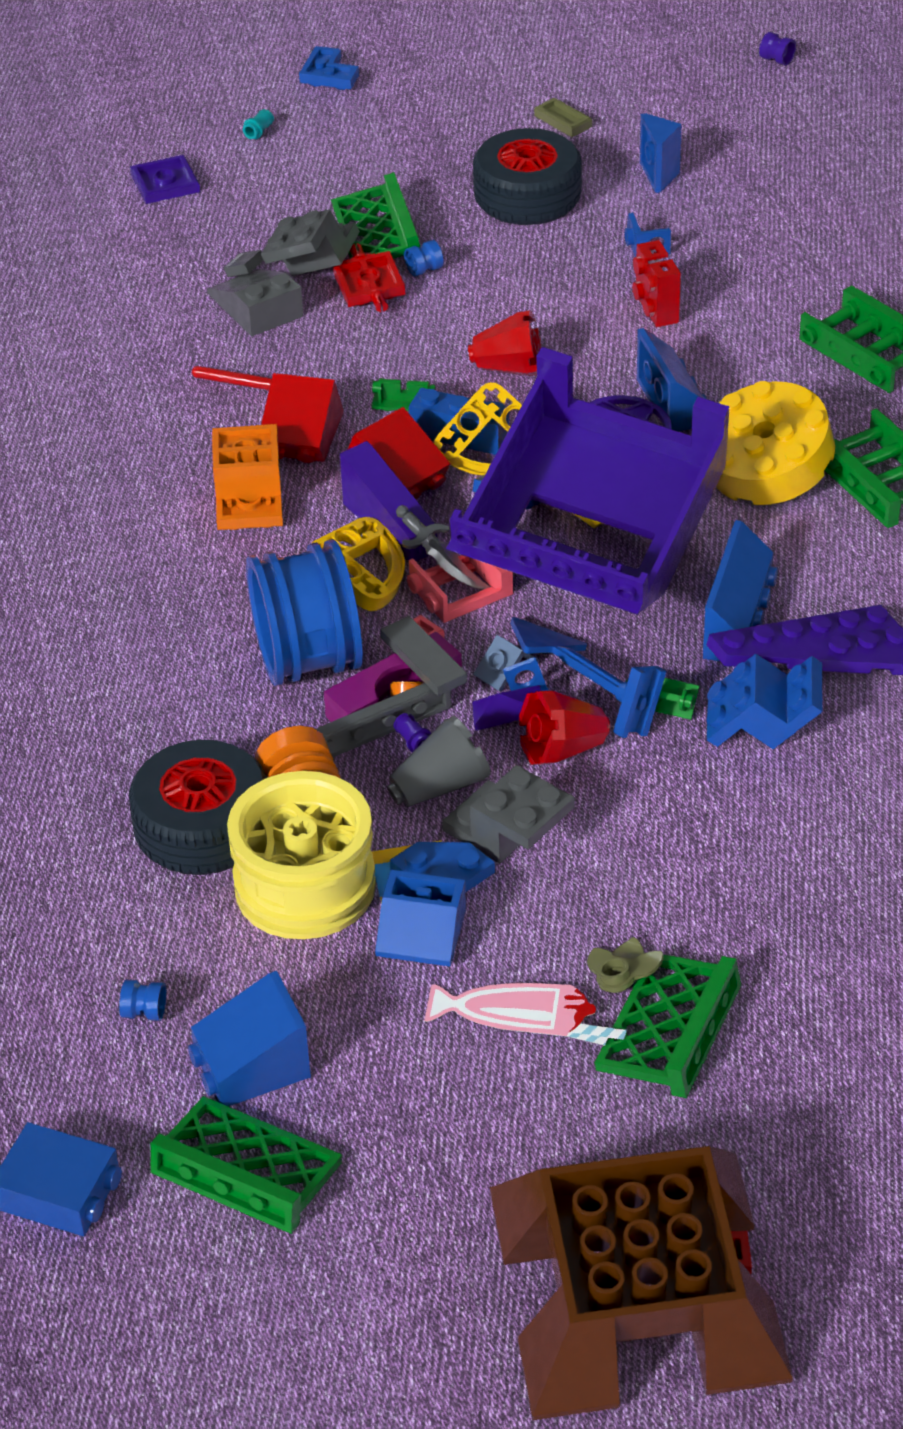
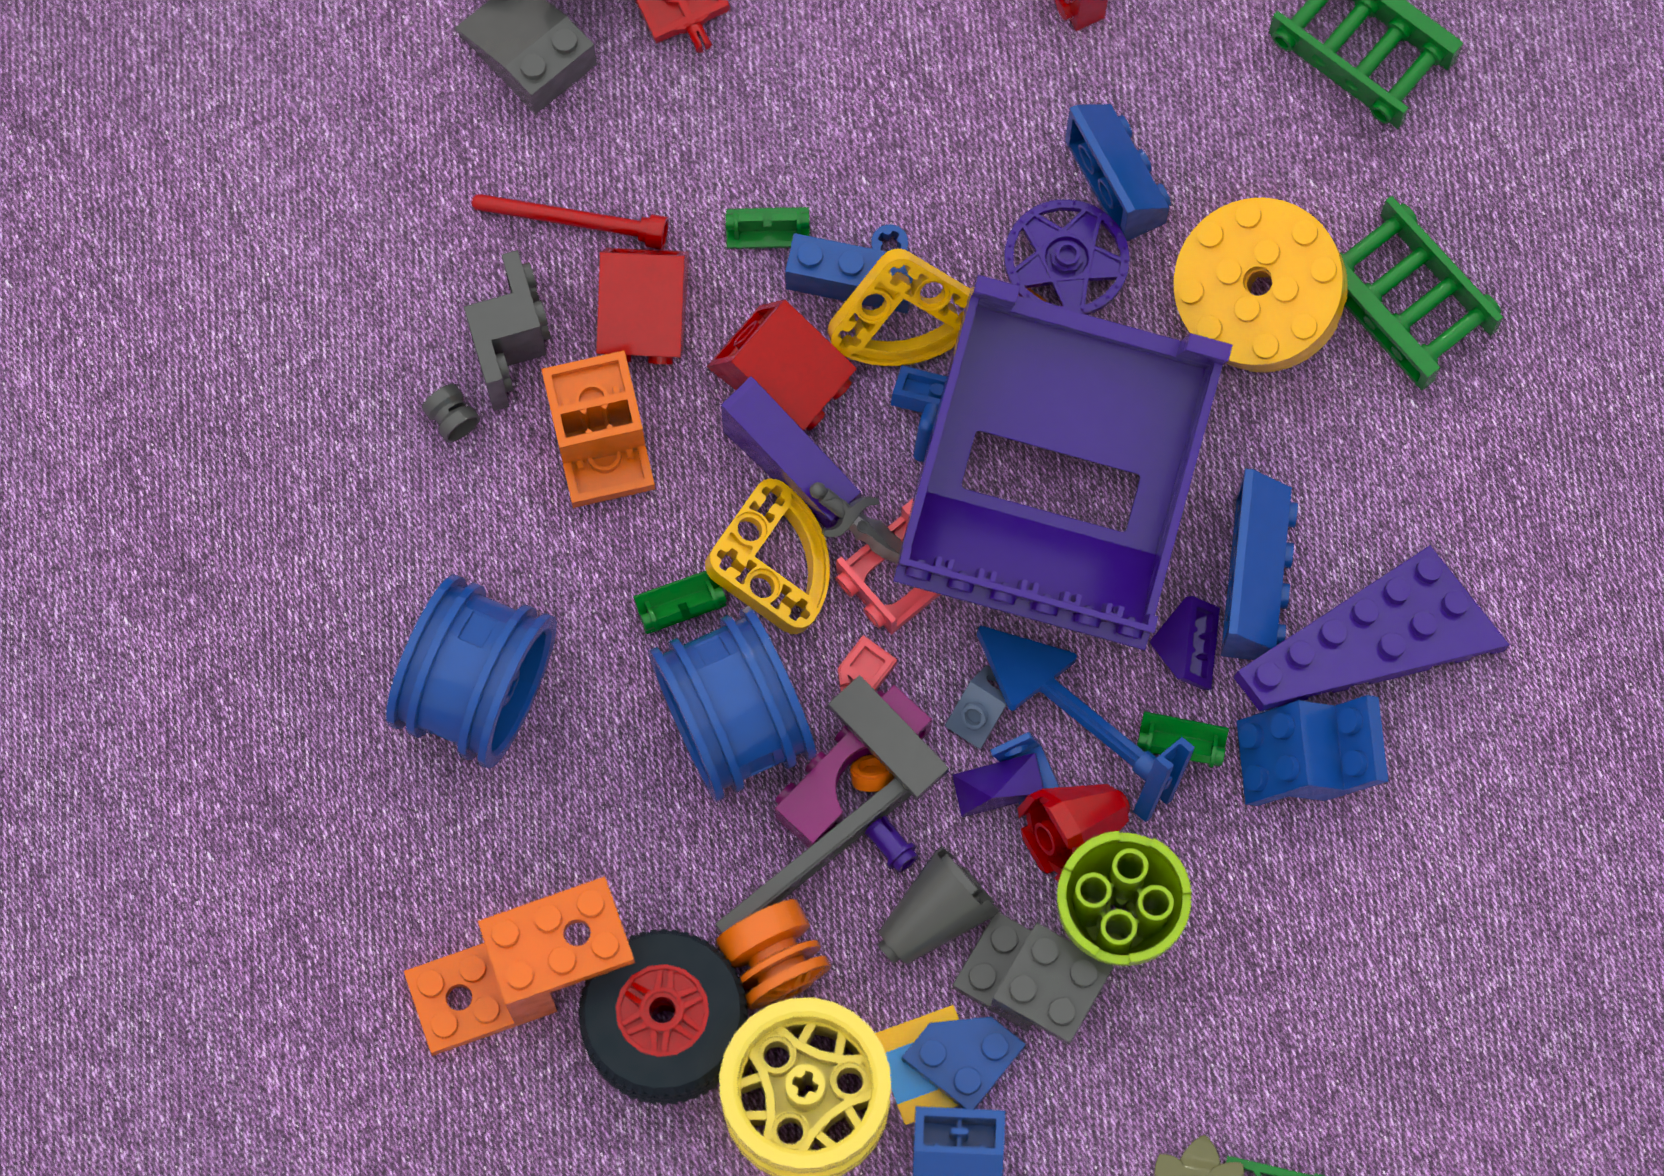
camera: 10 degrees left, 30 degrees up
(96, 725) = (519, 966): none -> orange bracket
(107, 576) = (471, 670): none -> blue wheel
(141, 468) = (450, 413): none -> dark grey wheel
(191, 417) = (508, 329): none -> dark grey bracket
(508, 346) = (893, 122): red cone -> none
(590, 755) = (1127, 874): none -> lime cone
(680, 641) = (1189, 641): none -> dark purple slope

